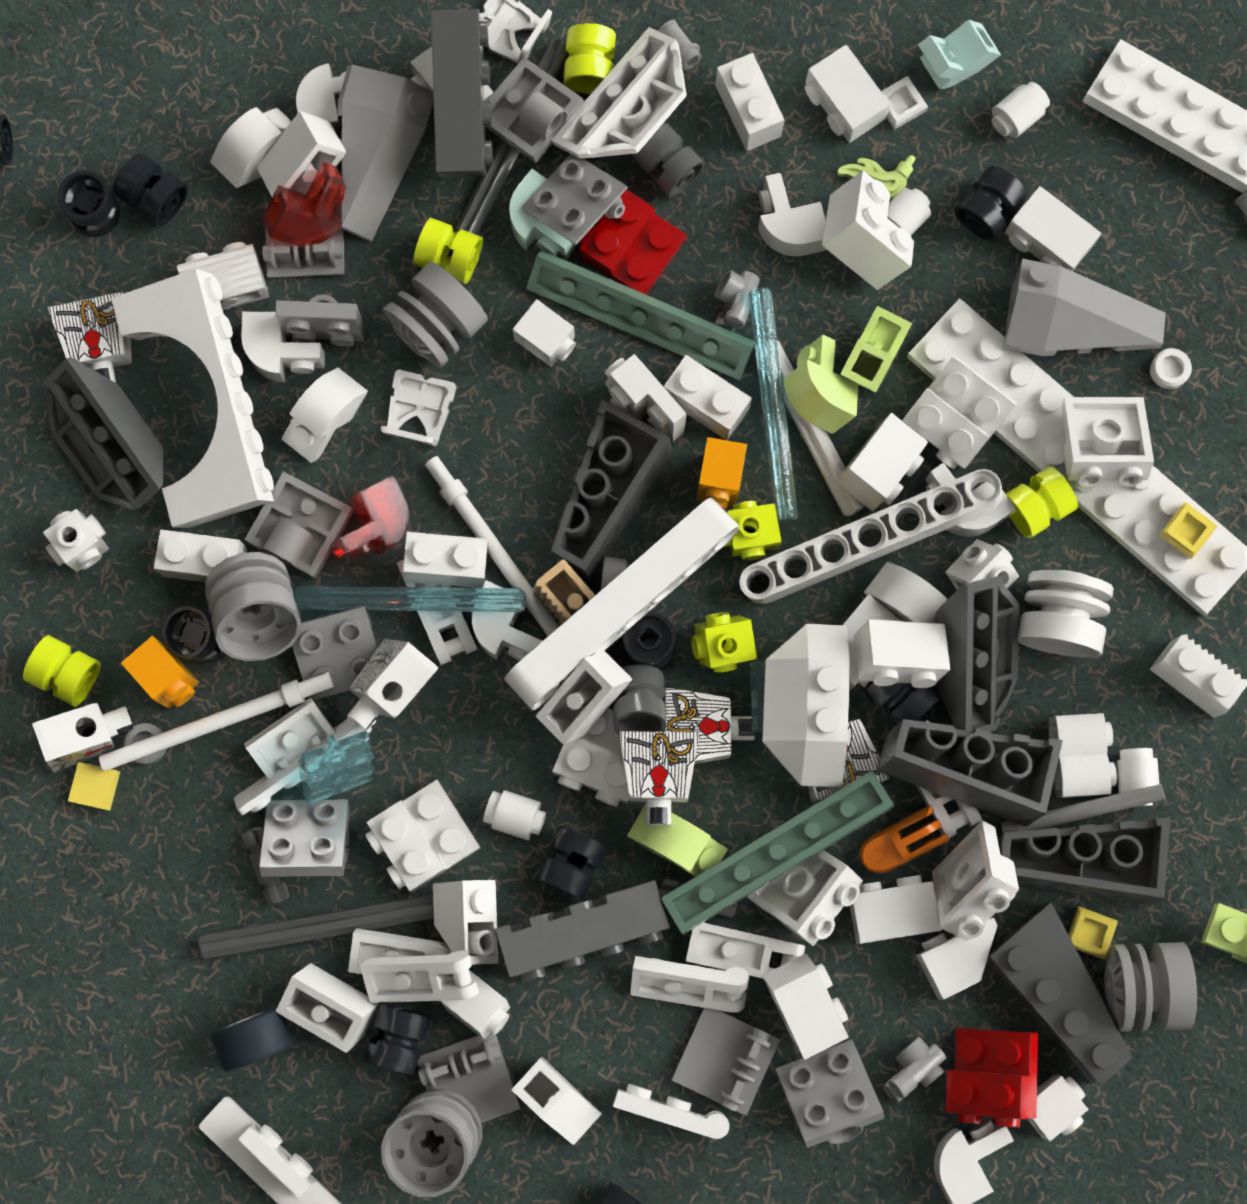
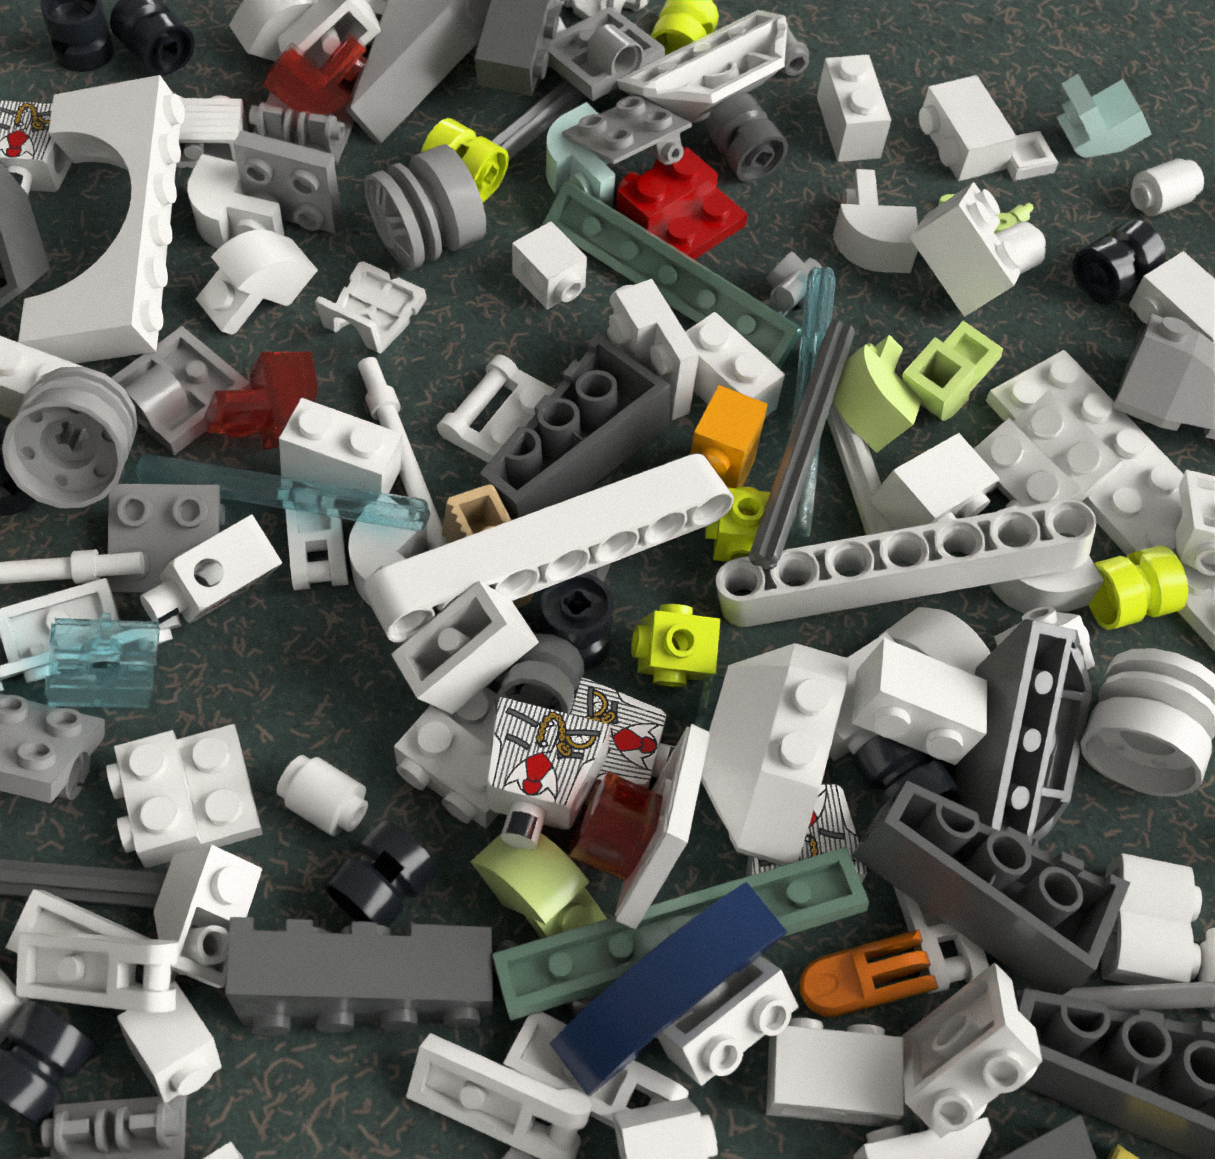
camera: 10 degrees right, 20 degrees down
(557, 479) = (513, 413): none -> white plate
(718, 796) = (615, 826): none -> clear red brick
(750, 788) = (679, 788): none -> white tile
(778, 457) = (801, 446): none -> dark grey axle
(779, 892) = (665, 986): none -> dark blue slope

